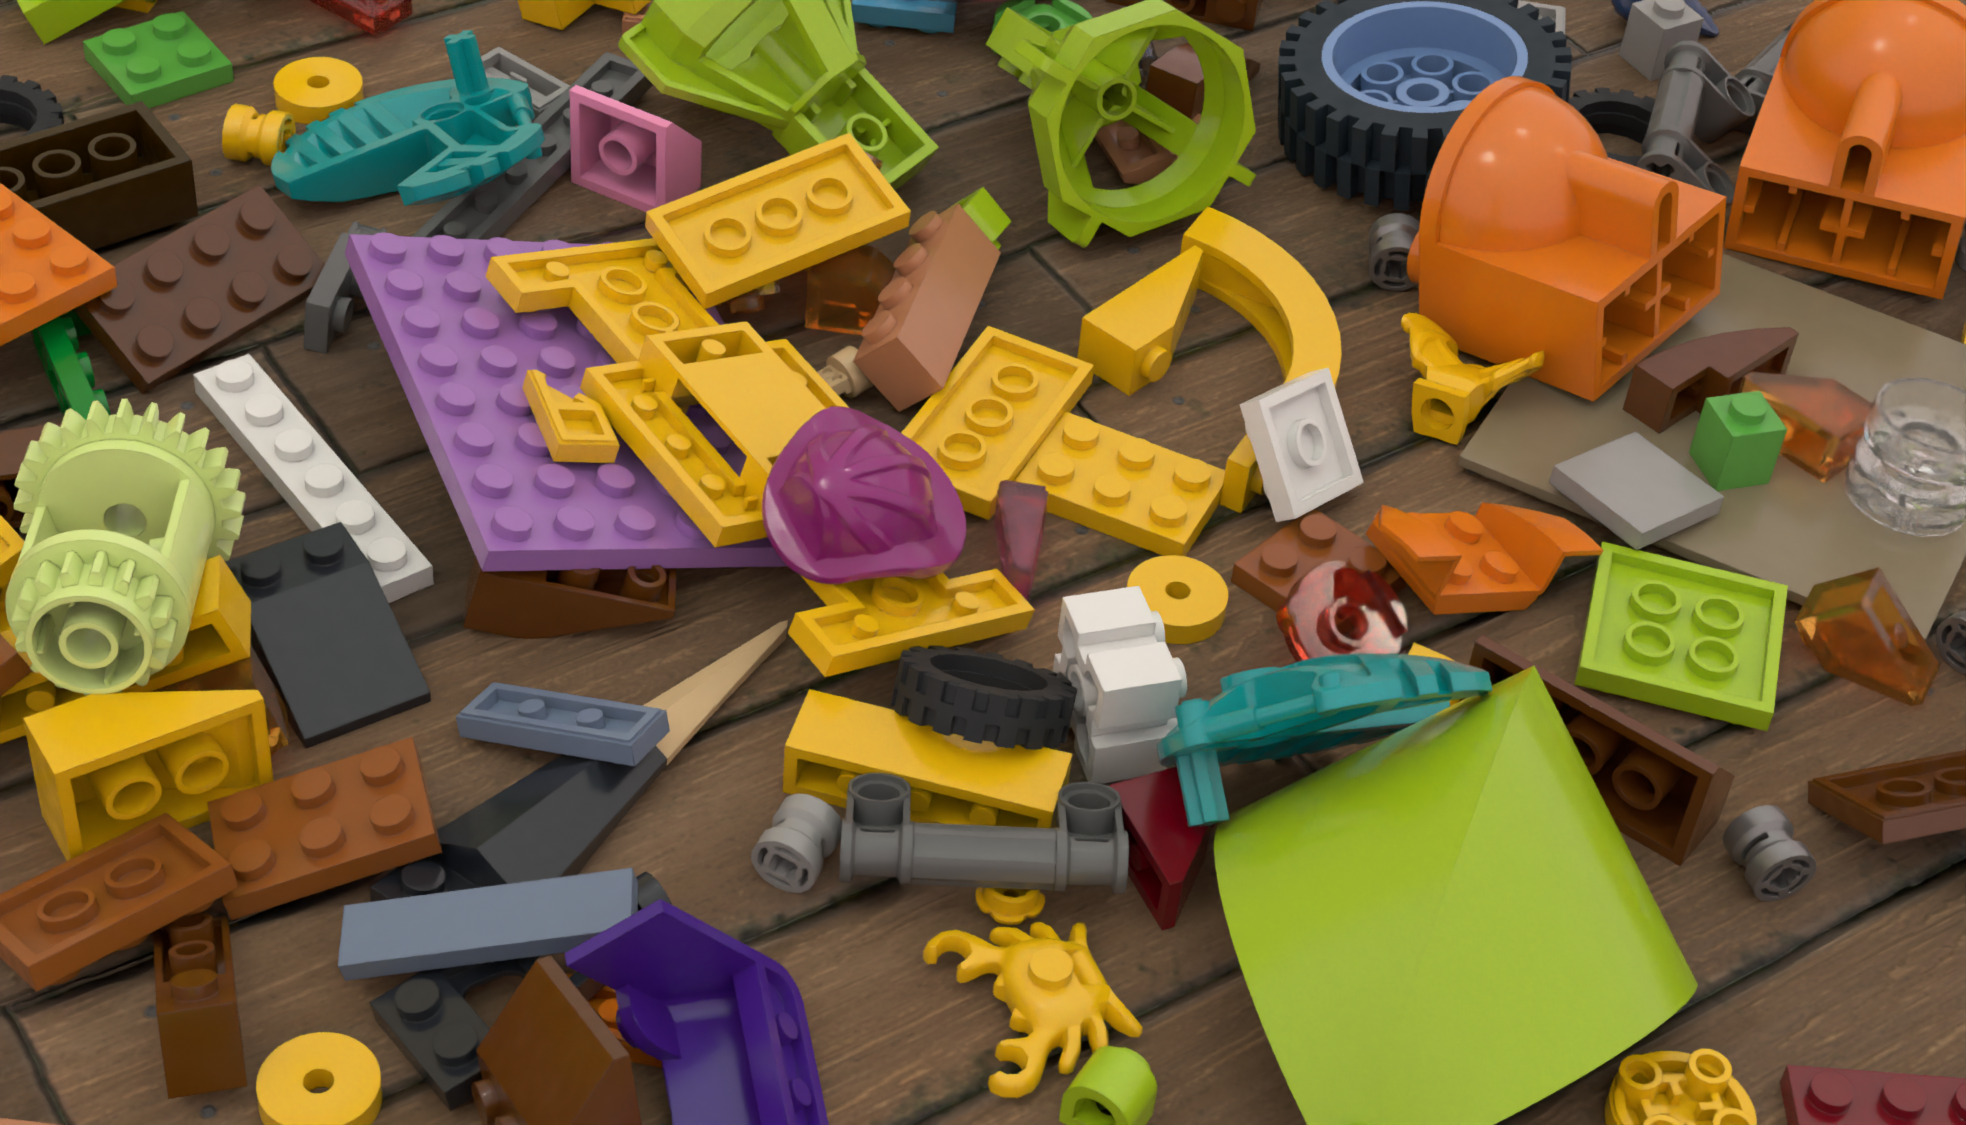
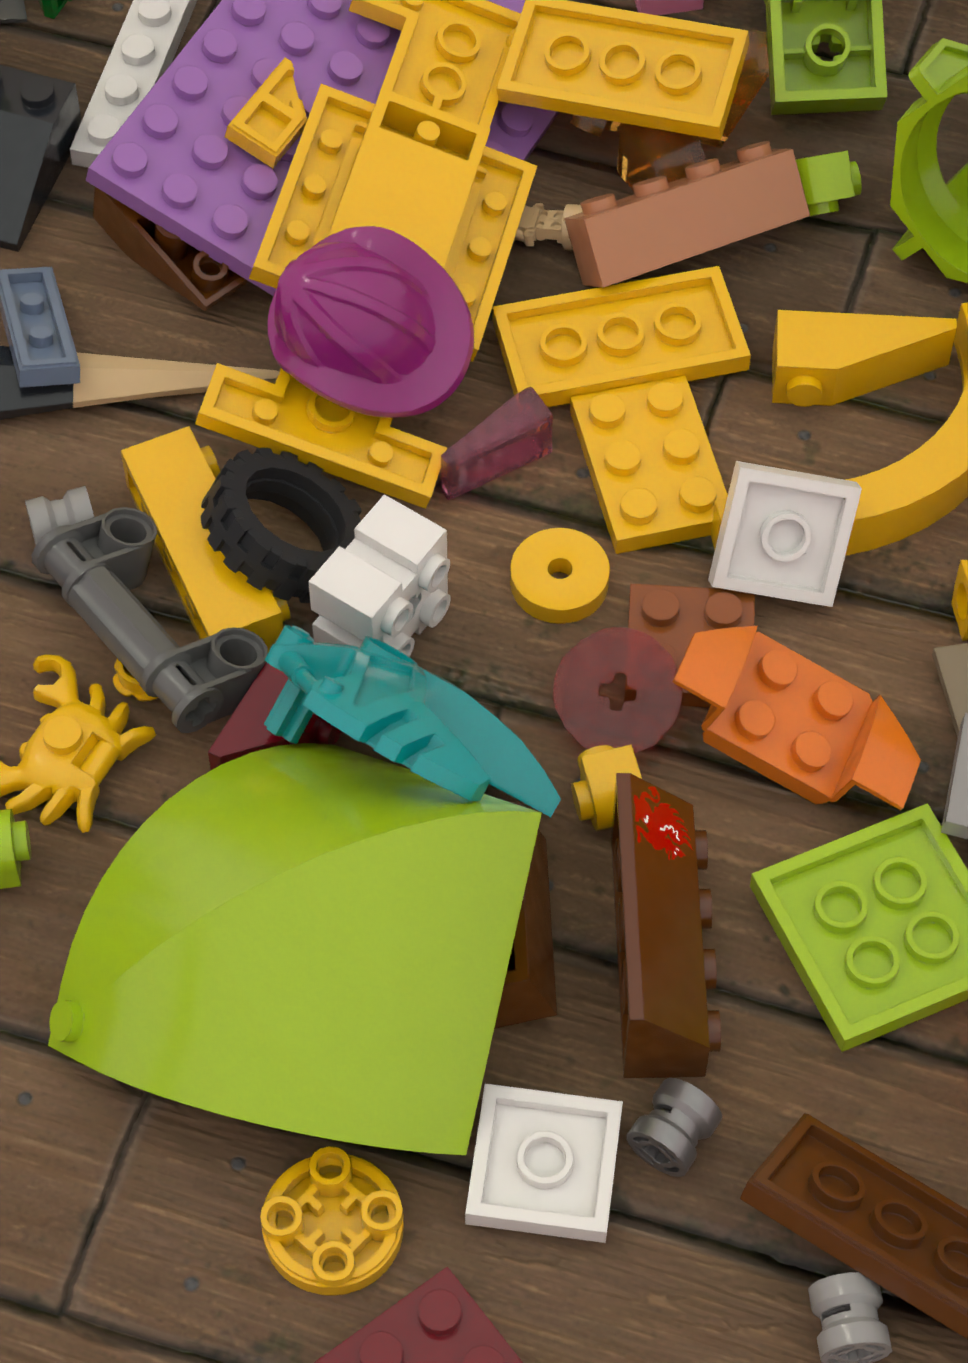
camera: 55 degrees right, 15 degrees up
(1745, 948) = (544, 1163): none -> white plate

